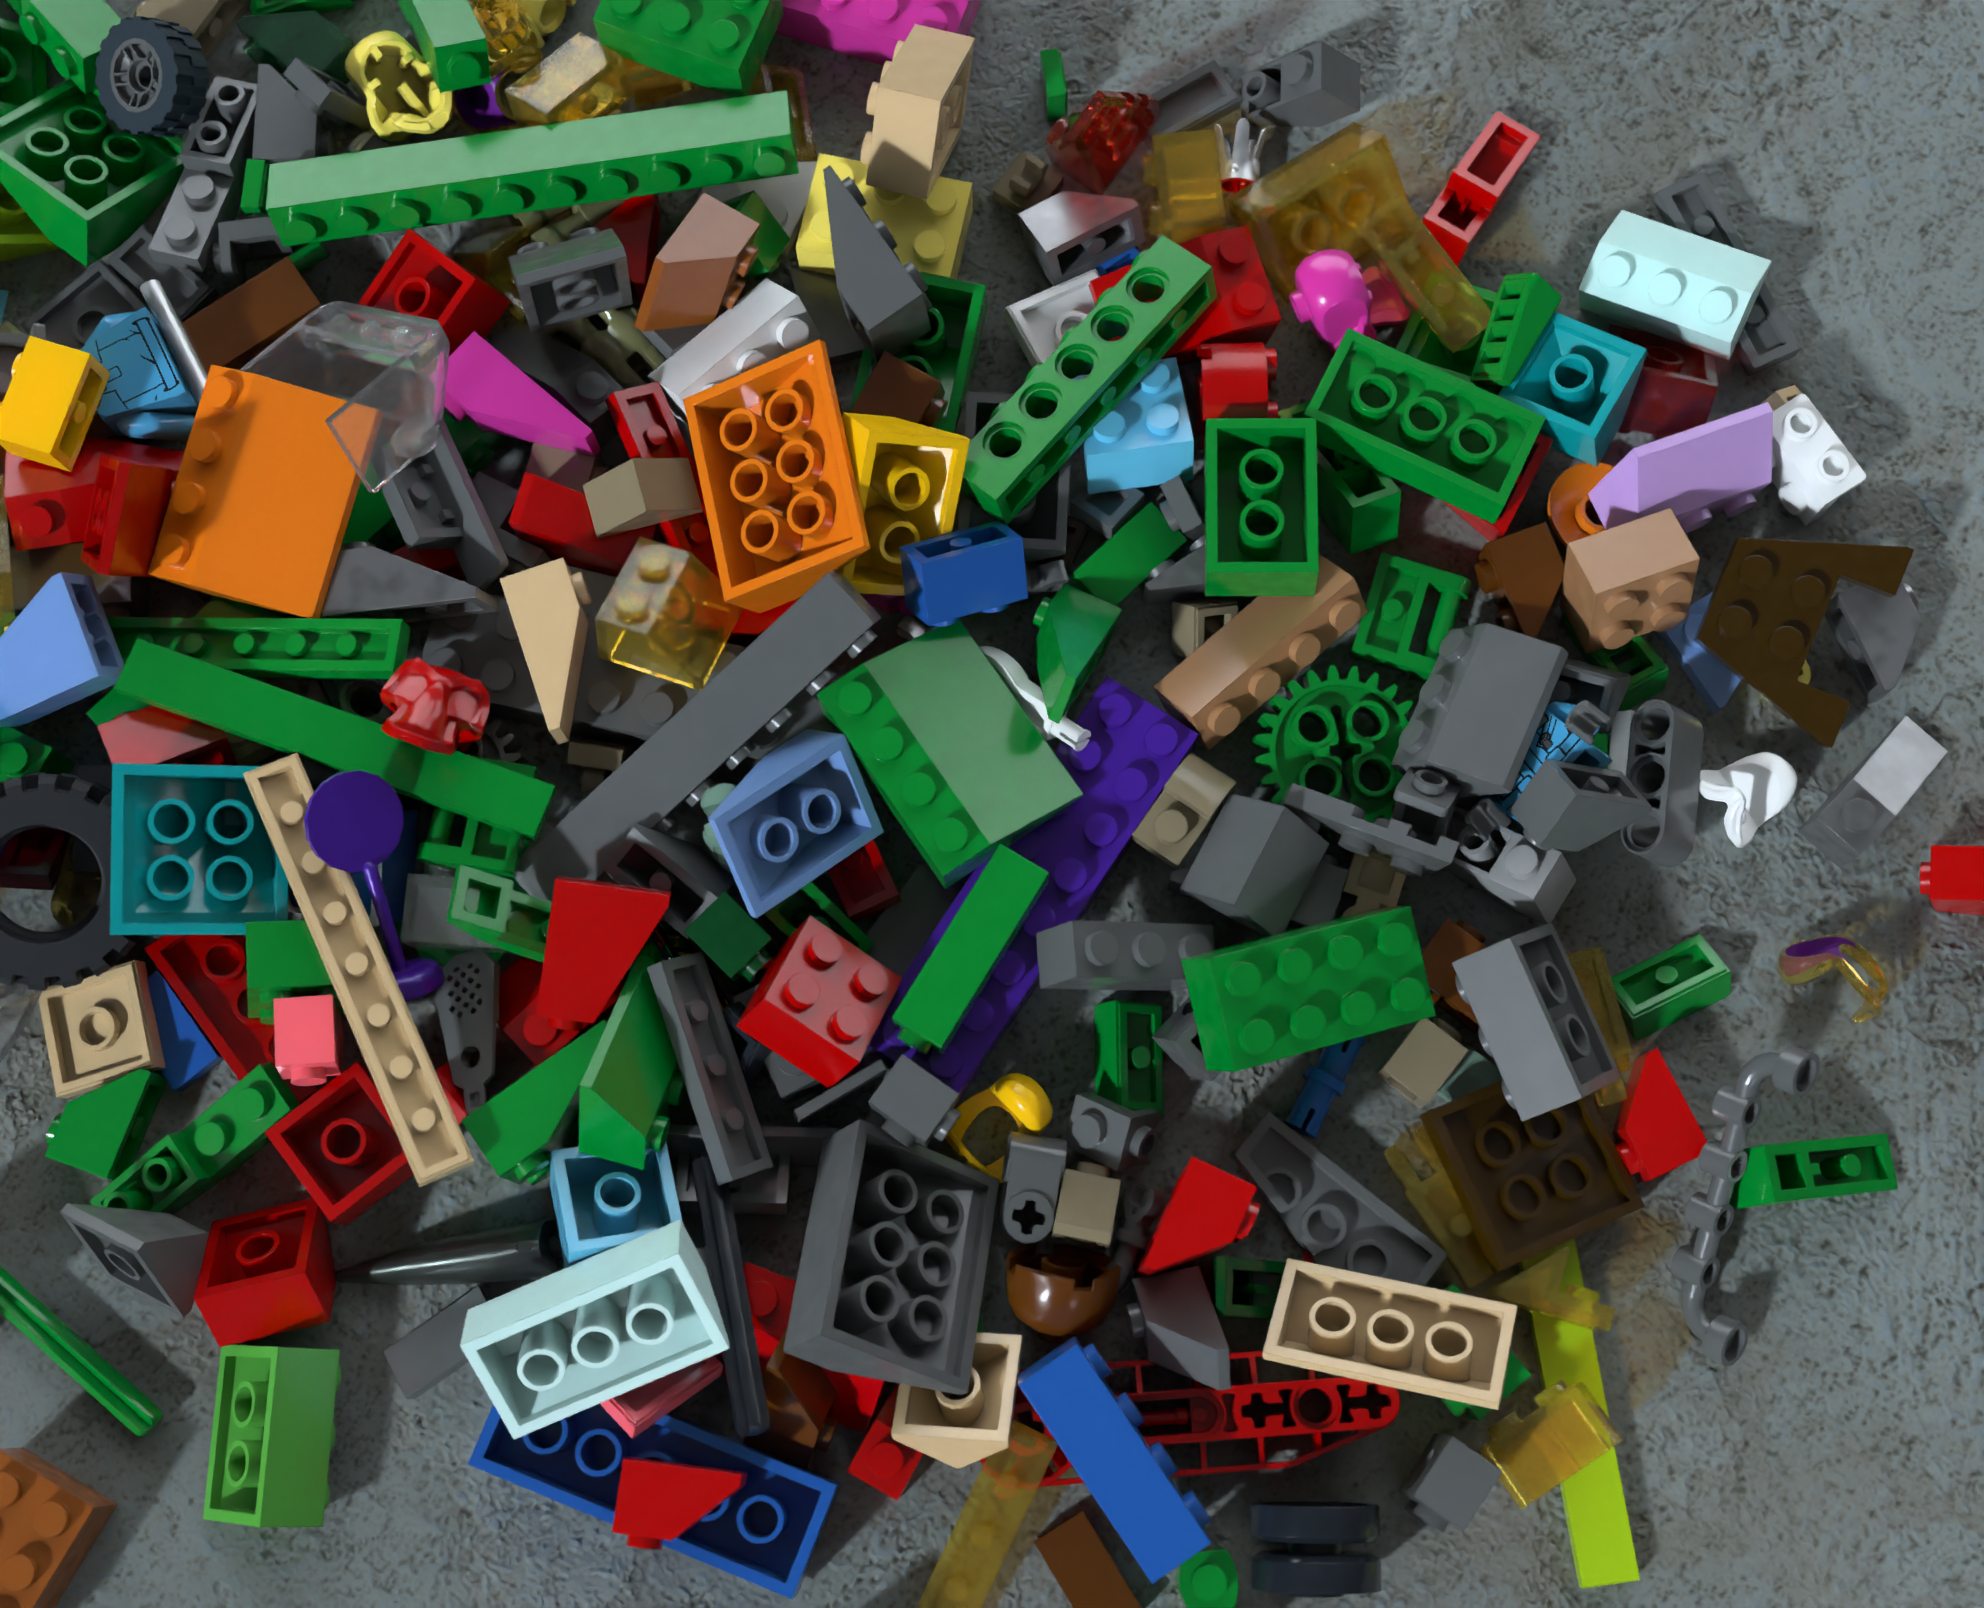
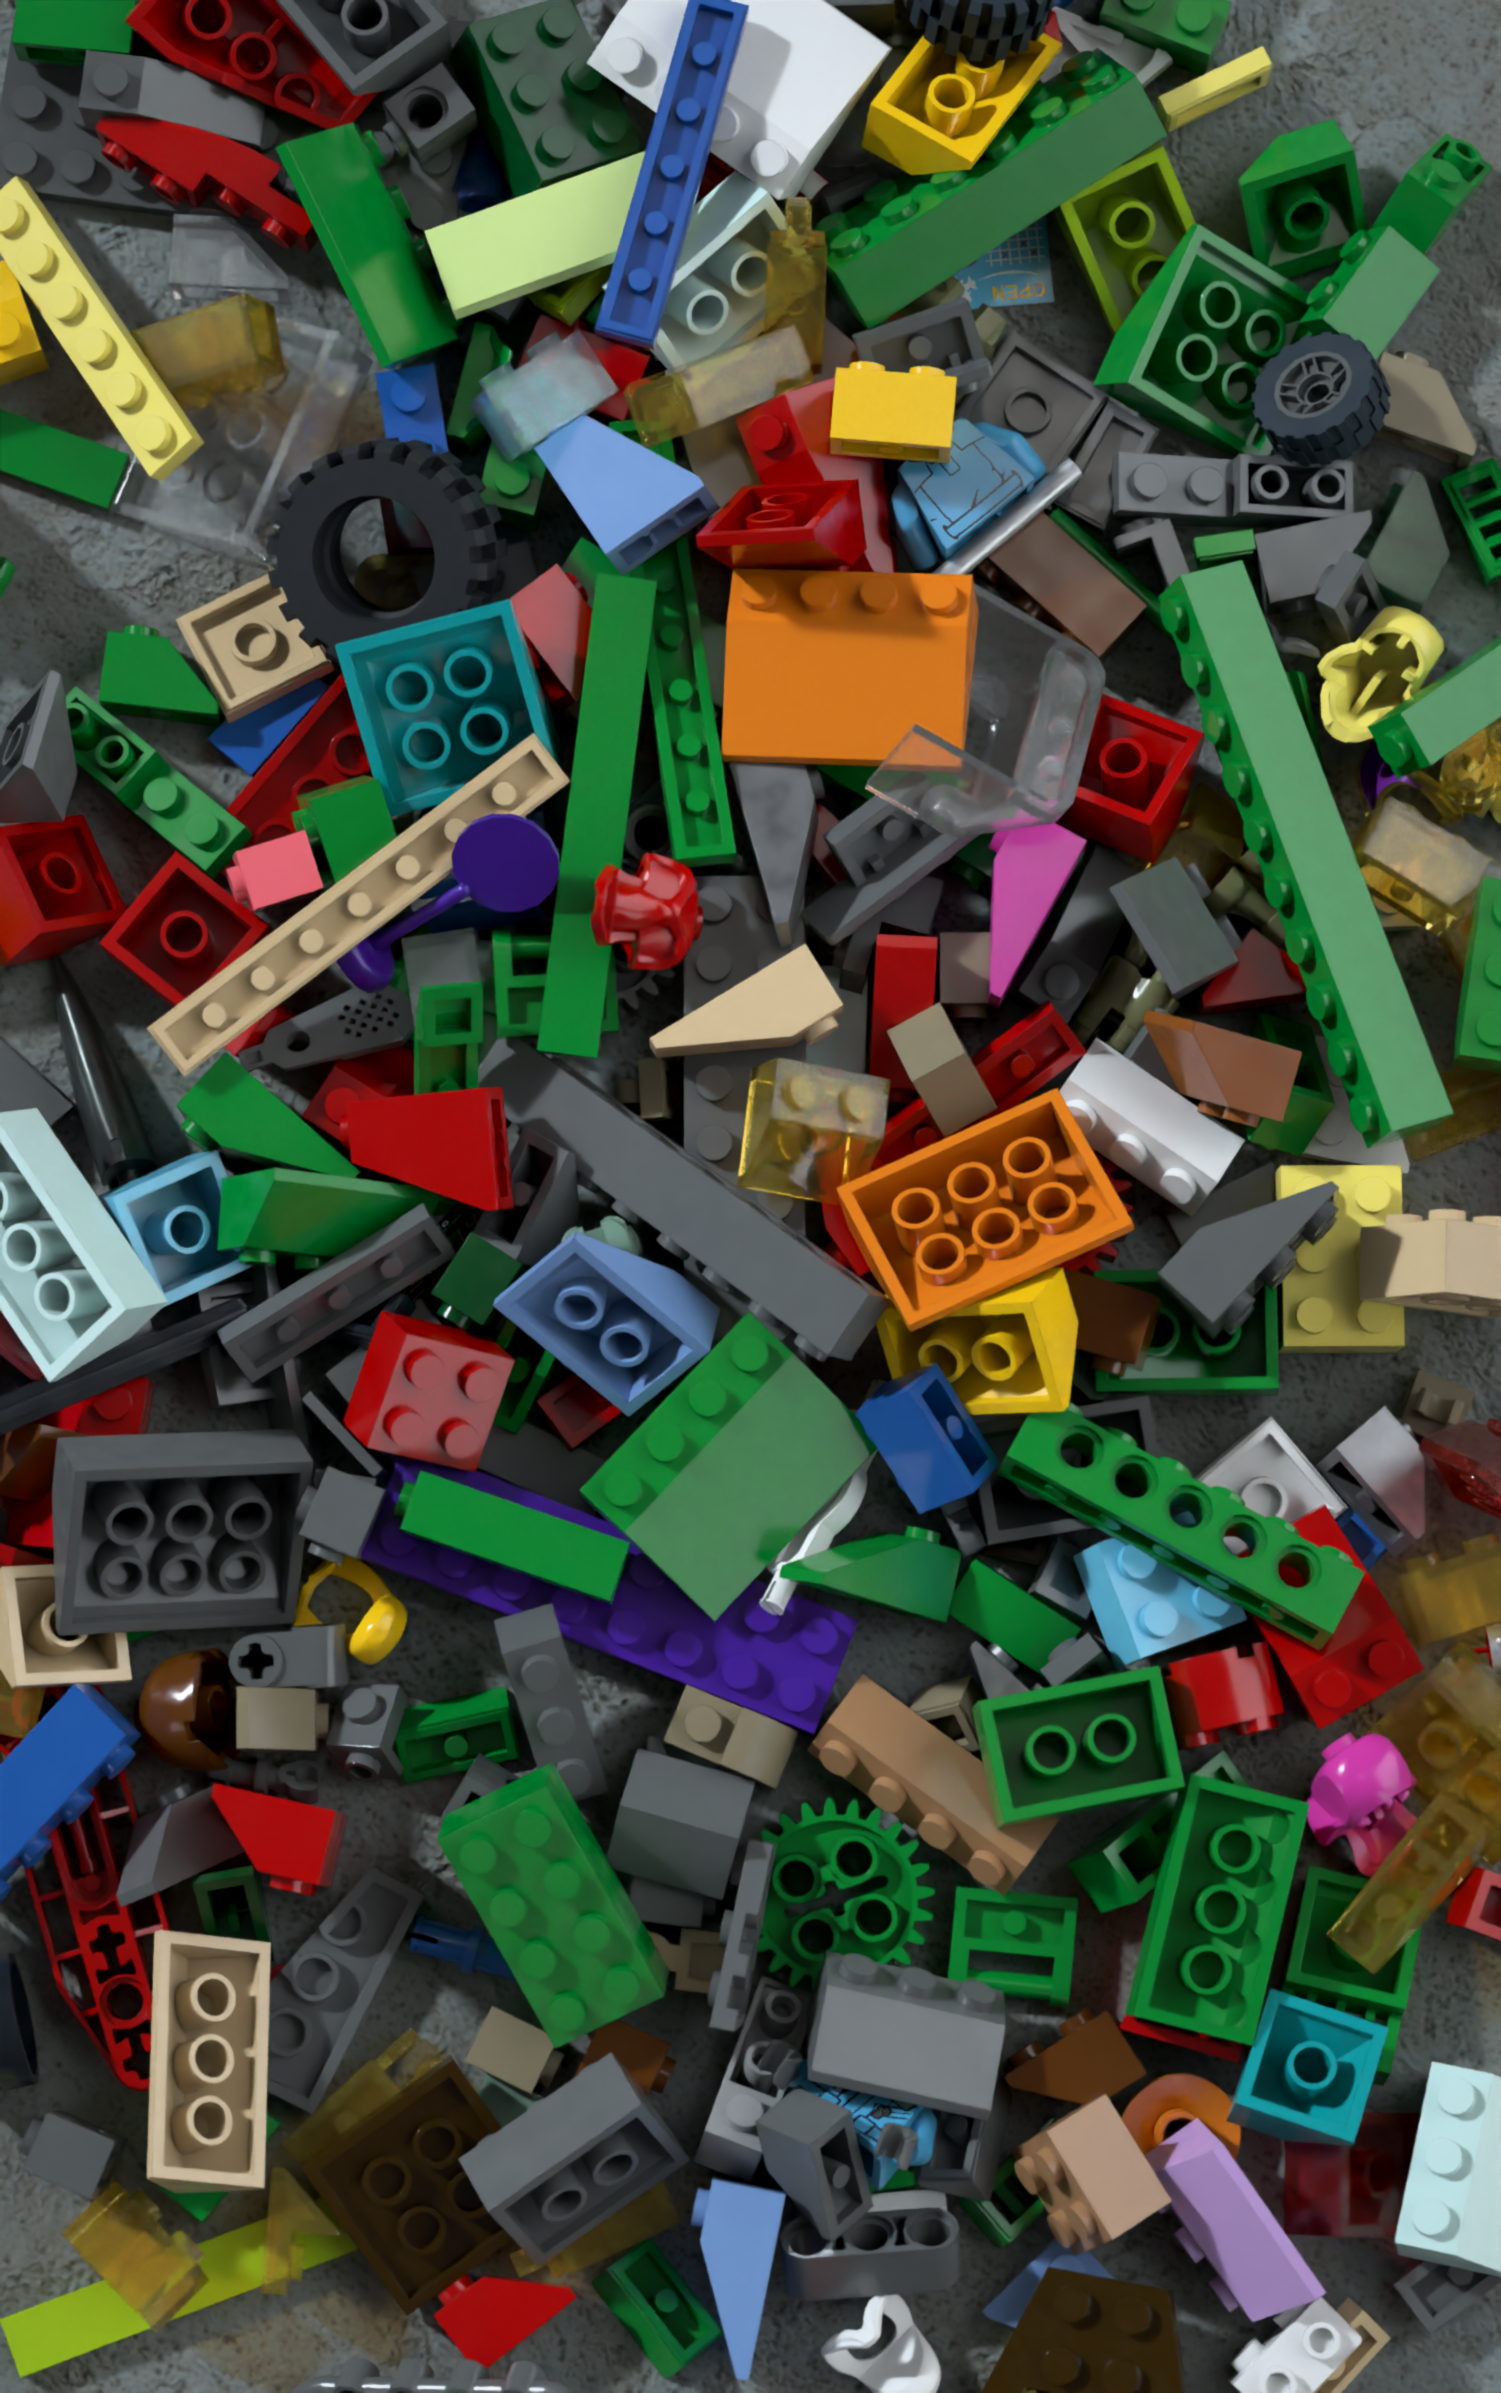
camera: 75 degrees right, 5 degrees up
(1426, 803) = (783, 1994): dark grey bracket -> none
(1515, 324) = (1355, 1992): green slope -> none
(1641, 894) = (738, 2246): none -> medium blue slope

